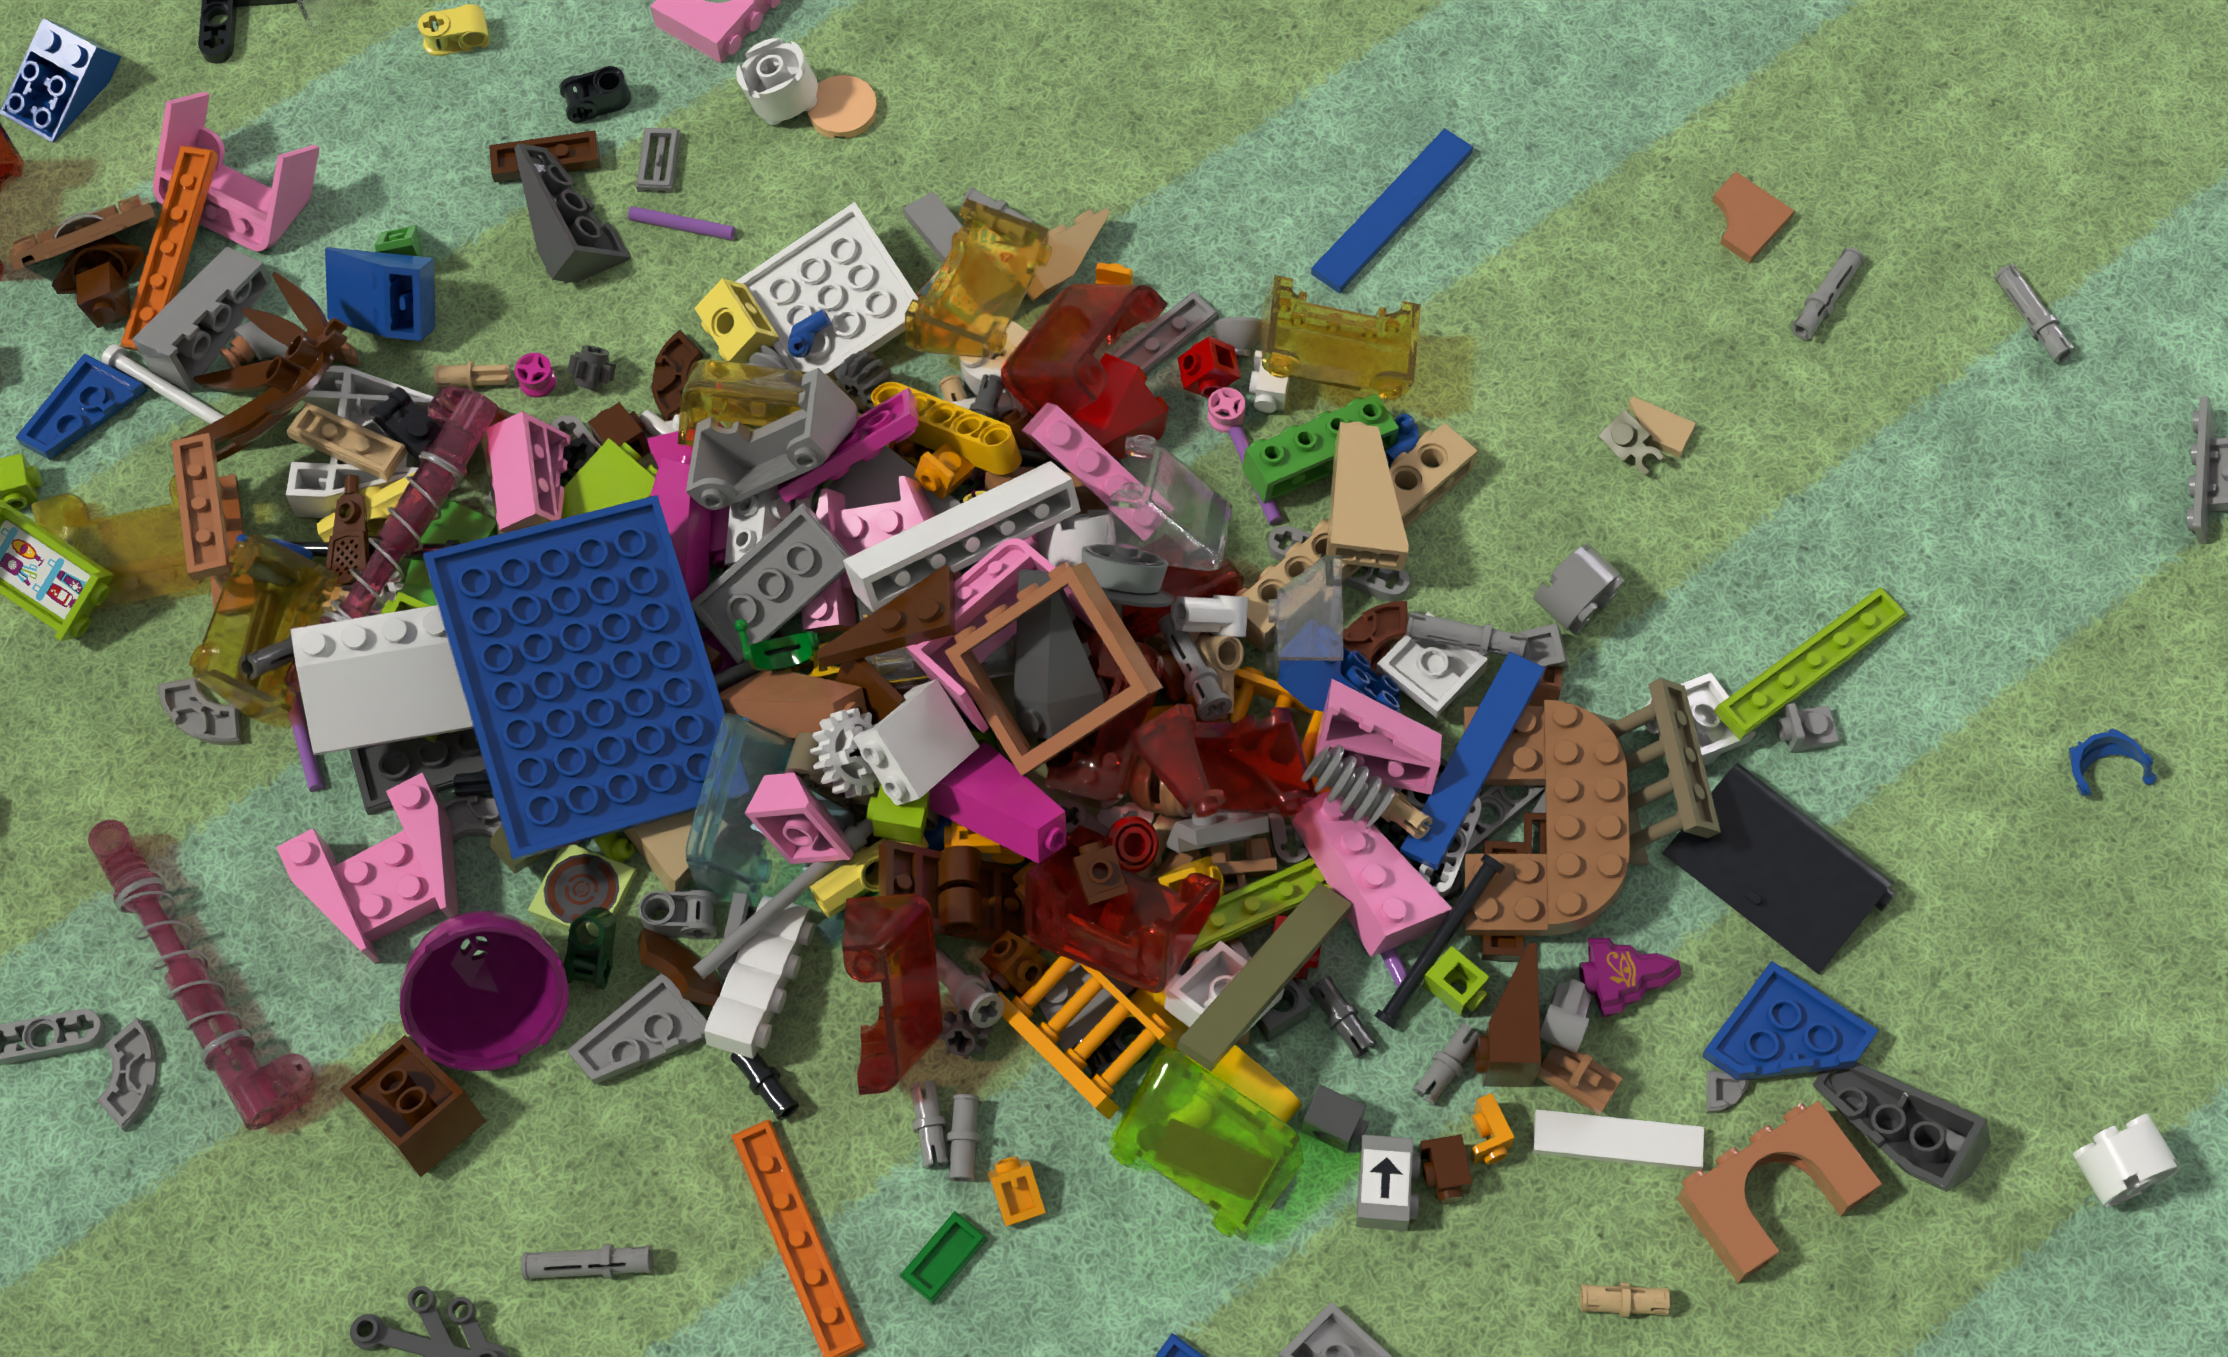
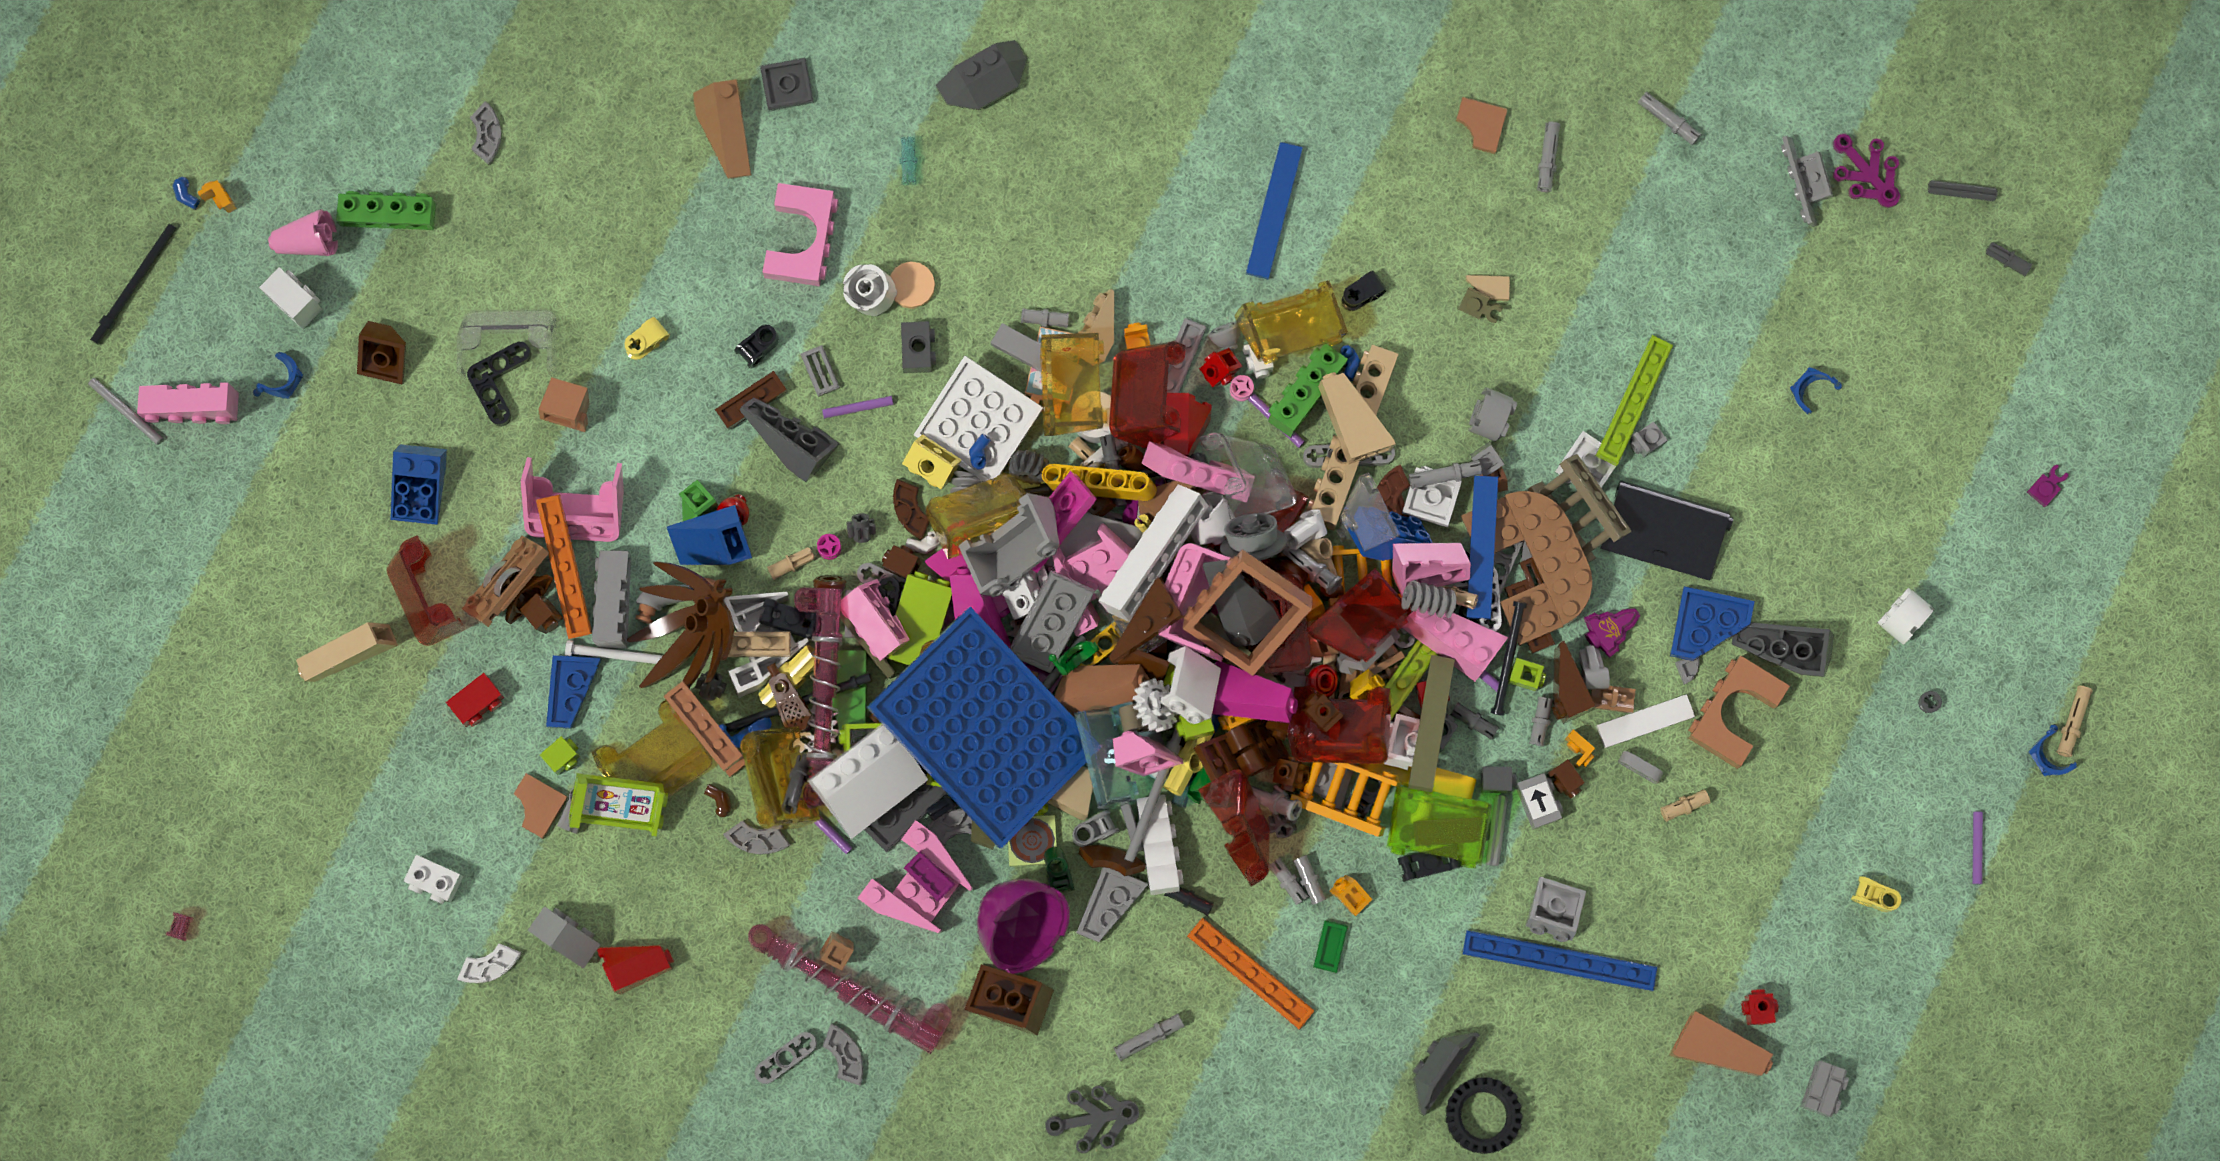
camera: 30 degrees left, 15 degrees up
(185, 637) = (721, 798): none -> reddish brown arm
(205, 912) = (836, 950): none -> medium nougat brick
(264, 480) = (710, 690): none -> dark grey gear
(298, 59) = (565, 405): none -> nougat plate
(393, 859) = (929, 876): none -> magenta plate
(446, 275) = (741, 506): none -> red brick
(802, 161) = (912, 334): none -> dark grey brick
(943, 470) = (1113, 511): light orange bracket -> none
(1162, 1203) = (1427, 864): none -> black plate
(1297, 1199) = (1496, 830): none -> axle
(1470, 354) = (1365, 289): none -> black piece
(1577, 1205) = (1640, 767): none -> light grey beam
(2127, 1320) = (1935, 697): none -> dark grey bush

